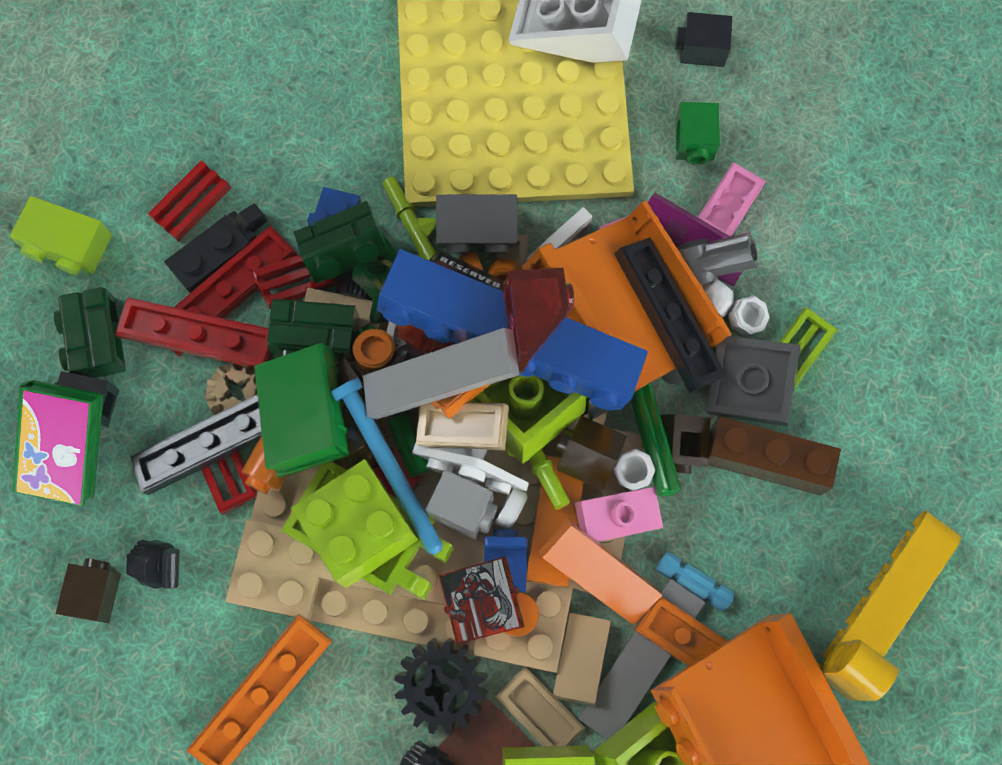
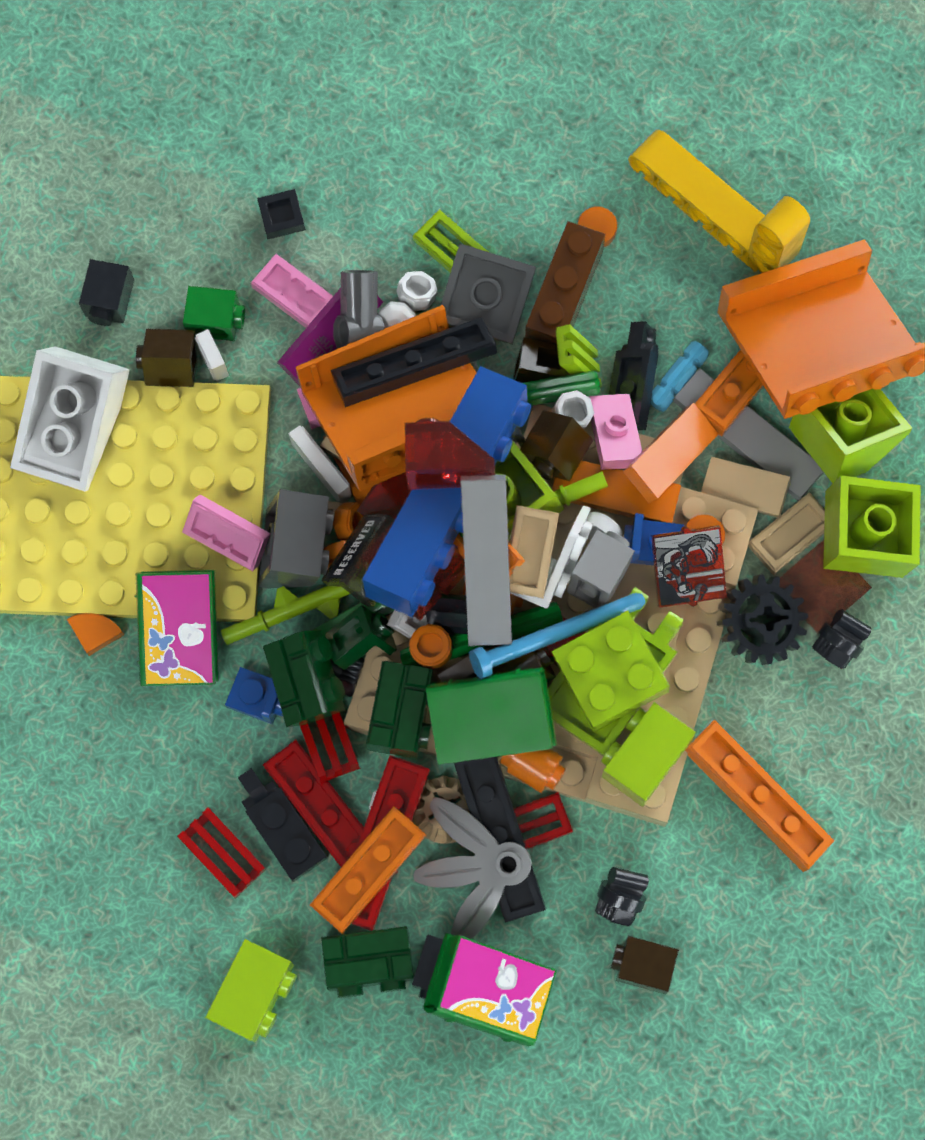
camera: 80 degrees left, 0 degrees up
(166, 321) = (368, 870): none -> orange tile
(174, 425) = (481, 868): none -> light grey plant
(281, 571) = (647, 753): none -> lime brick
(384, 71) = (94, 631): none -> orange tile
(388, 134) = (177, 627): none -> piece
(479, 160) = (226, 532): none -> bright pink plate
(647, 98) = (168, 357): none -> dark brown brick
(655, 136) = (211, 355): none -> white tile
(692, 536) = (636, 369): none -> black hinge
(710, 475) = (581, 351): none -> lime tile
(808, 183) = (281, 214): none -> black plate
(848, 487) = (600, 220): none -> orange tile

